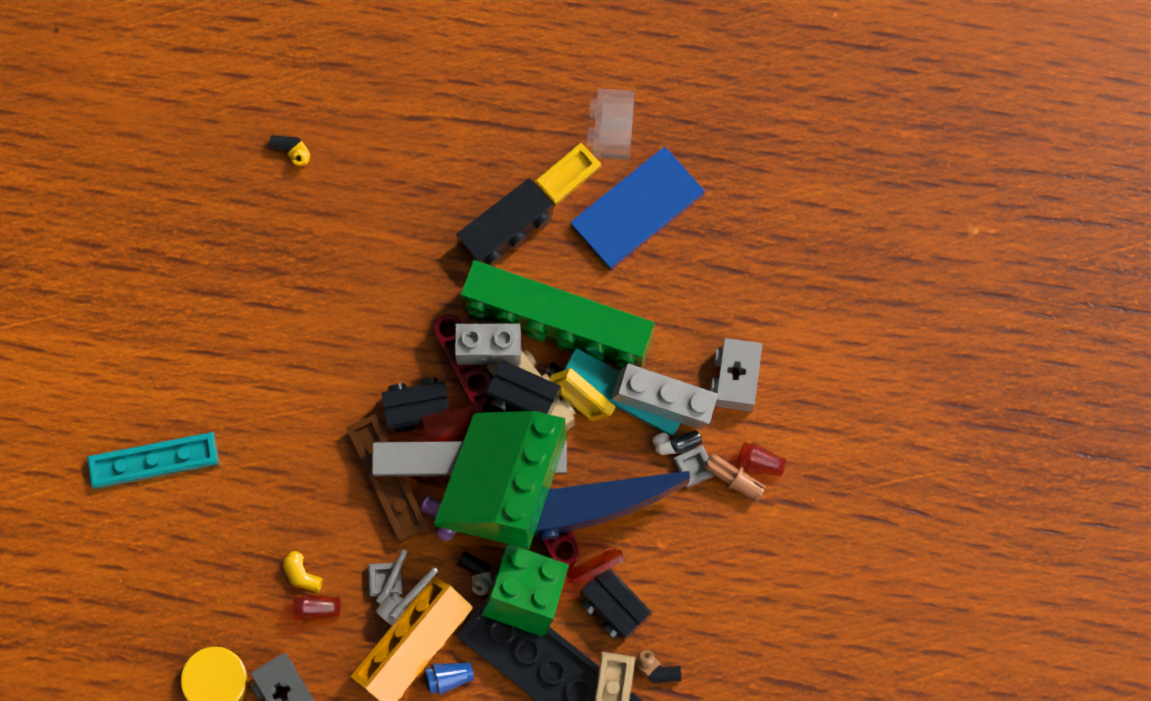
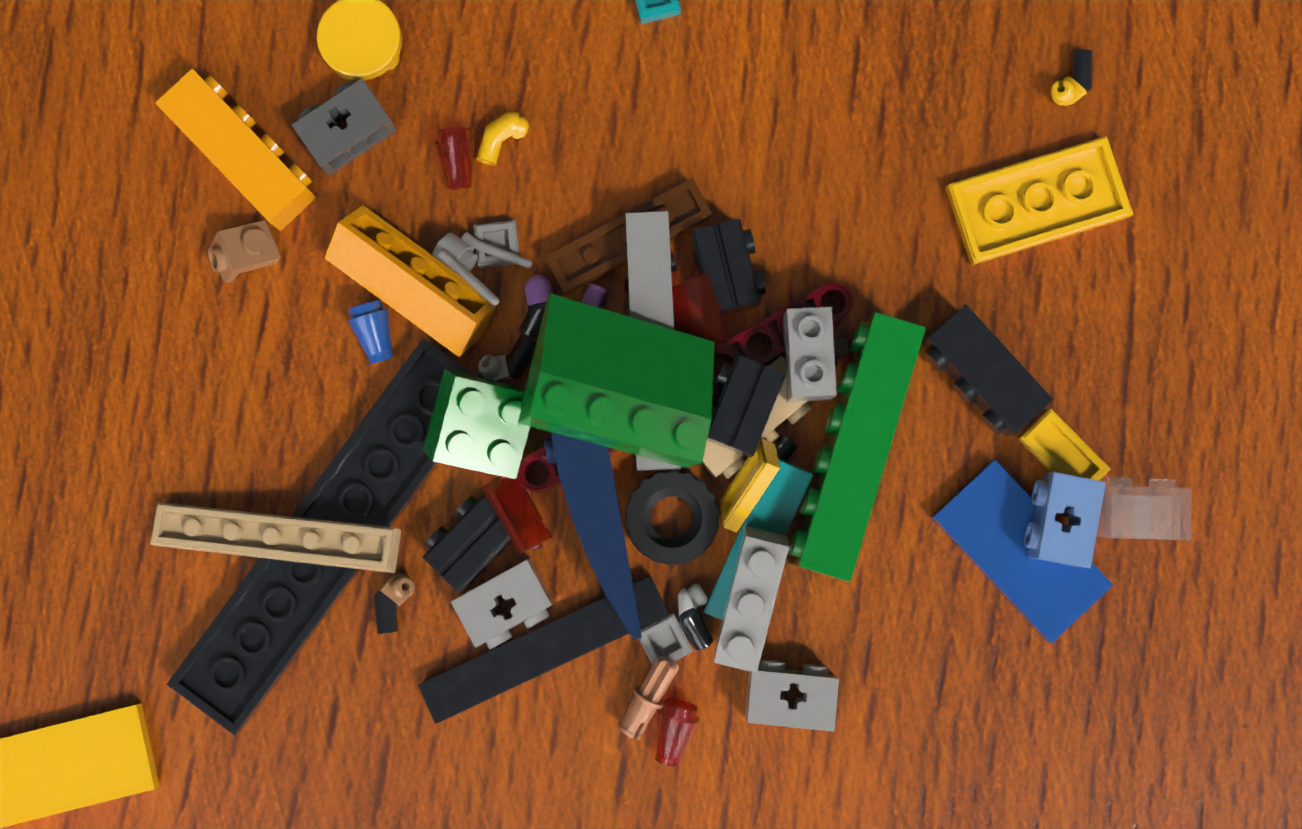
camera: 90 degrees right, 10 degrees up
(379, 180) = (1038, 200): none -> yellow tile
(435, 546) = (537, 292): none -> arm
(594, 432) = (704, 523): none -> black tyre
(602, 167) = (1079, 501): none -> medium blue brick
(647, 569) = (478, 606): none -> light grey brick
(701, 565) = (535, 653): none -> black tile

